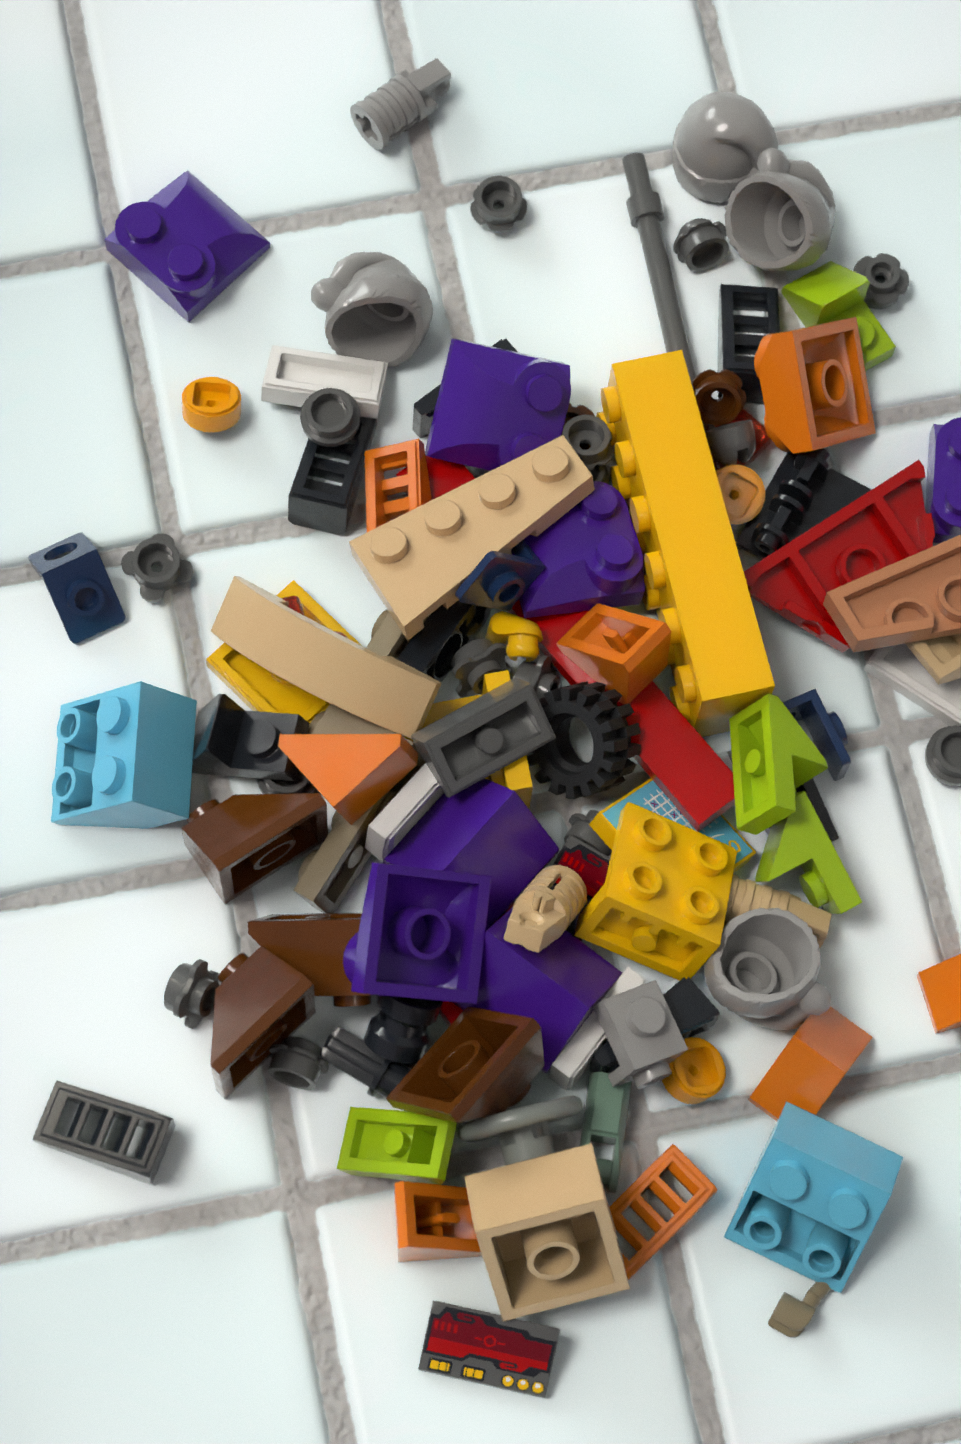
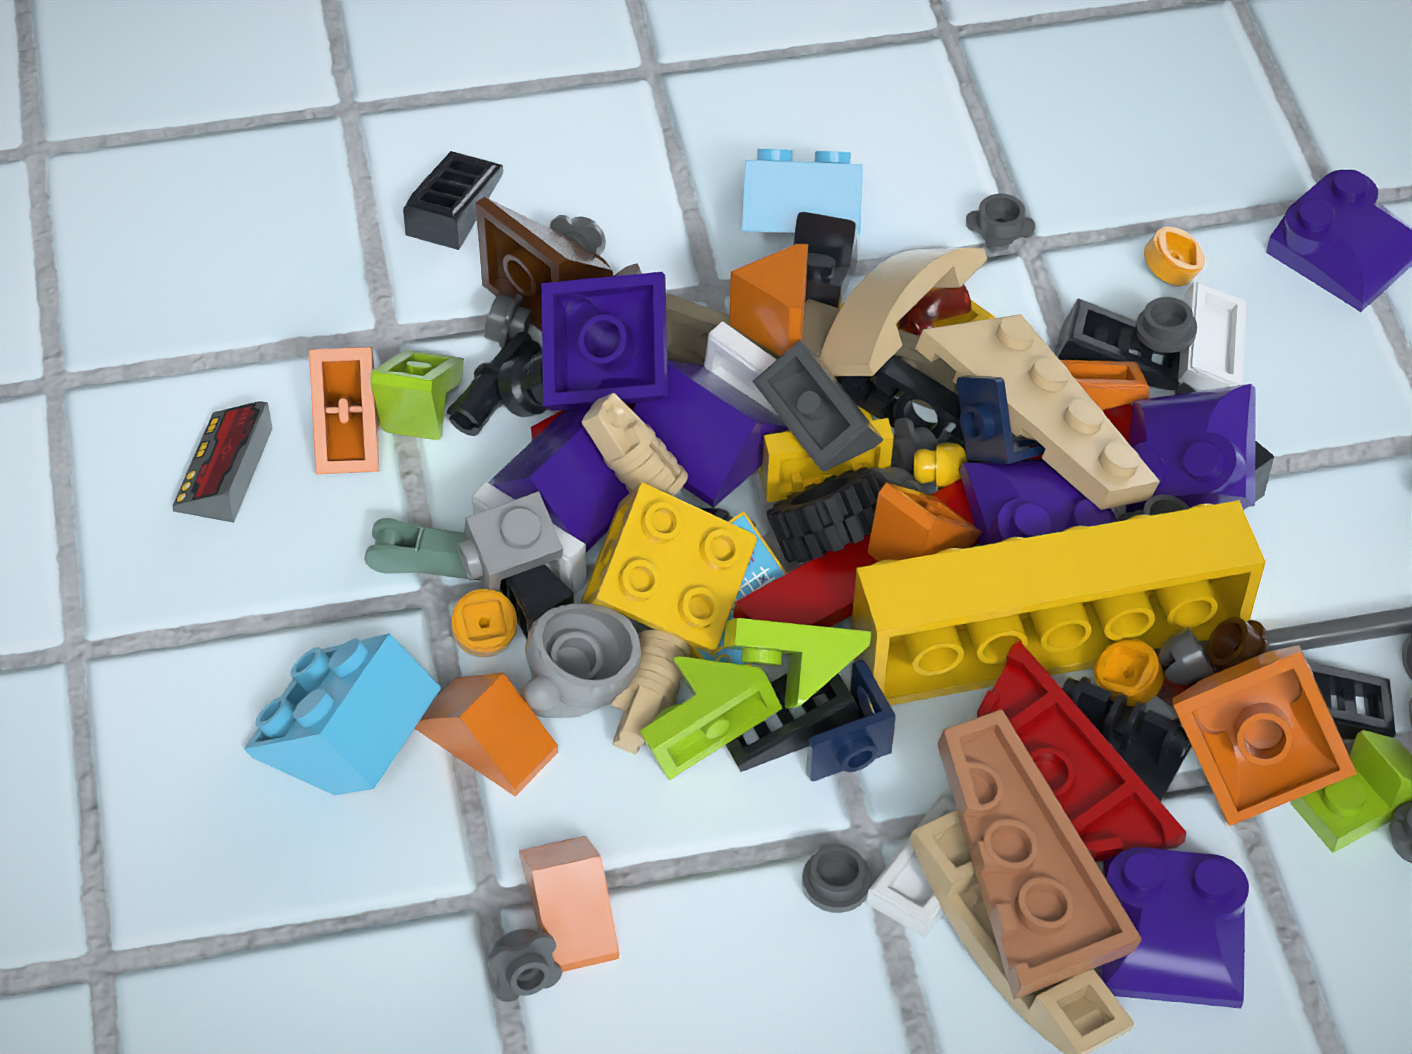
camera: 95 degrees right, 20 degrees down
(78, 587) = (968, 163): dark blue bracket -> none
(253, 837) = (705, 251): reddish brown slope -> none
(373, 308) = (1298, 361): light grey piece -> none
(474, 1067) = (471, 410): reddish brown slope -> none
(542, 1214) = (324, 465): tan piece -> none
(689, 1176) = (367, 618): orange slope -> none
(794, 1315) = (225, 708): dark tan hand -> none

